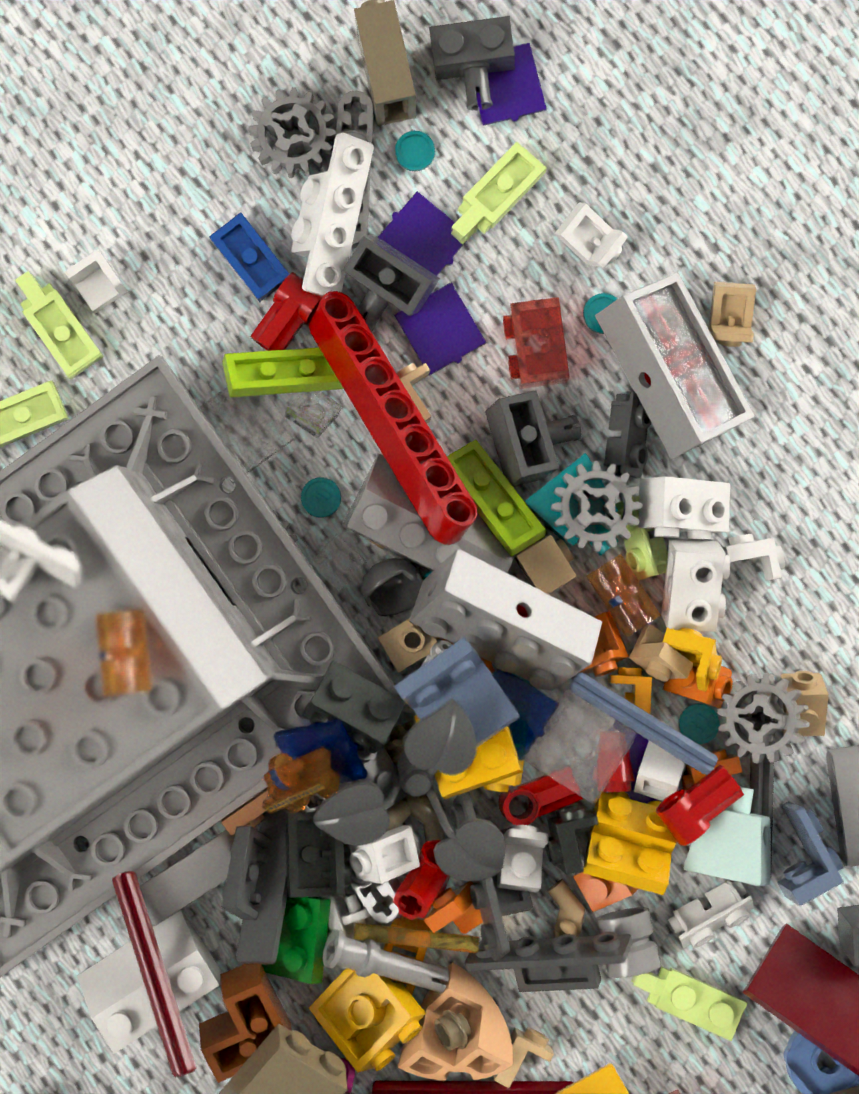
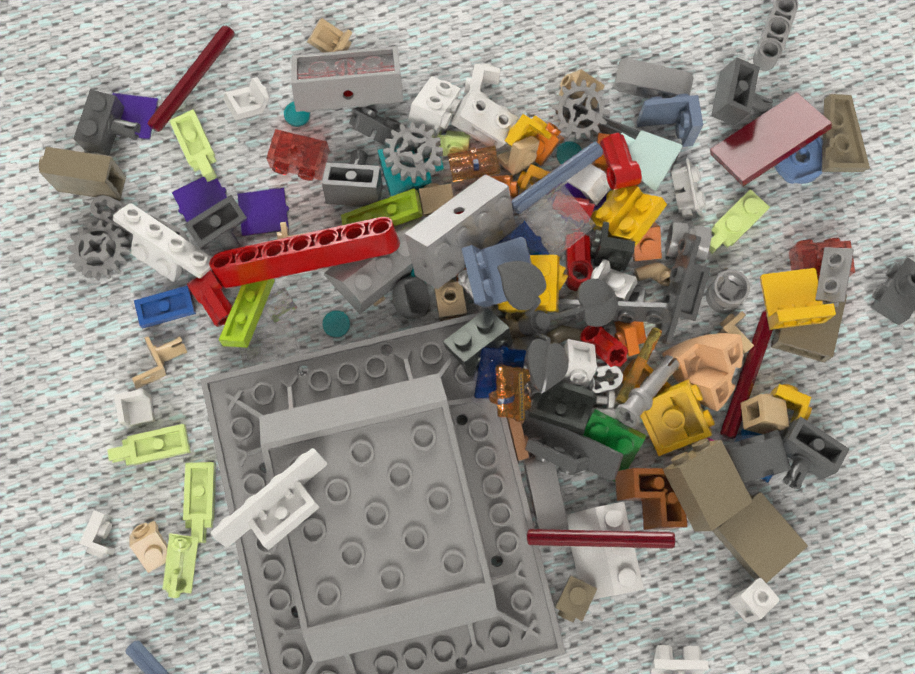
camera: 70 degrees left, 10 degrees down
(70, 966) = (575, 599): none -> dark tan bracket
(123, 652) = (383, 443): clear orange hips -> none
(181, 282) = (160, 355): none -> tan bracket
(415, 151) = (146, 184): teal piece -> none
(452, 1030) = (705, 365): dark tan plate -> none
(576, 1024) = (732, 287): none -> light grey wheel
(595, 143) = (191, 78): none -> dark red axle

